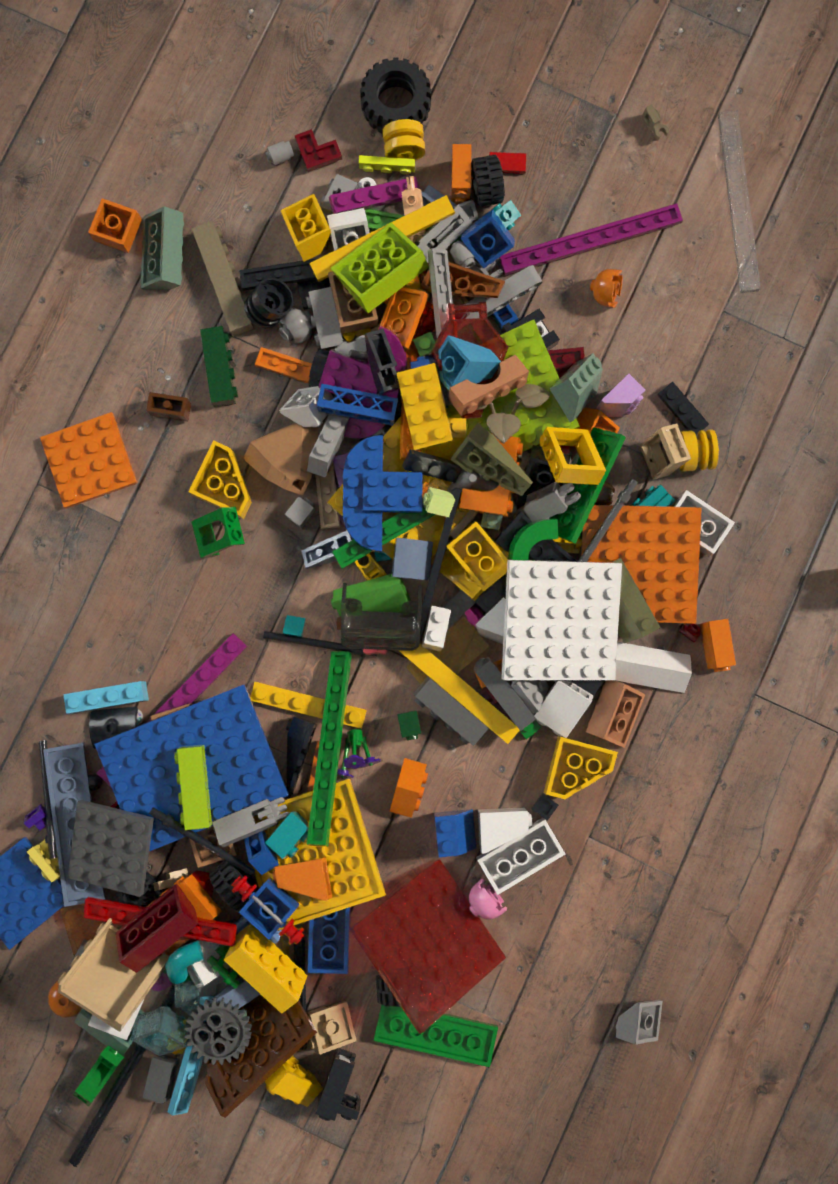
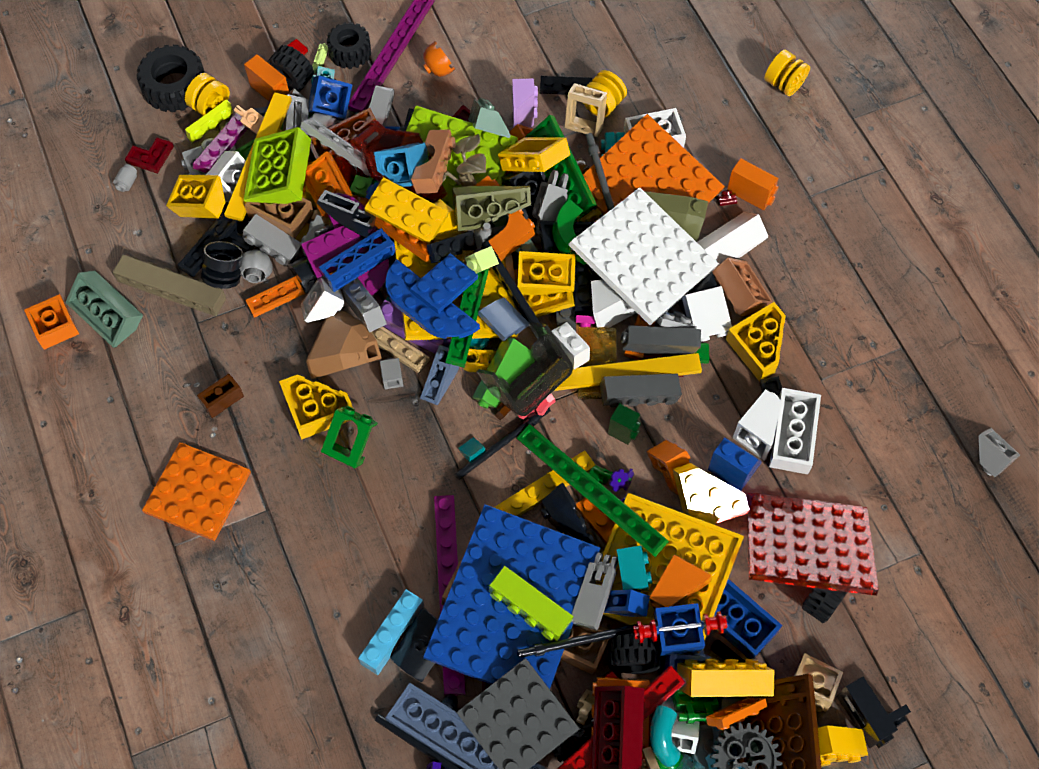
camera: 45 degrees left, 20 degrees down
(218, 367) = (228, 340): dark green brick -> none
(243, 996) = (736, 712): none -> orange plate
(404, 837) = (708, 496): none -> brick
(446, 1037) = (895, 602): green plate -> none
(485, 901) = (809, 482): bright pink cylinder -> none
(526, 190) = (320, 56): none -> yellowish green axle
(557, 188) = (346, 35): none -> black tyre

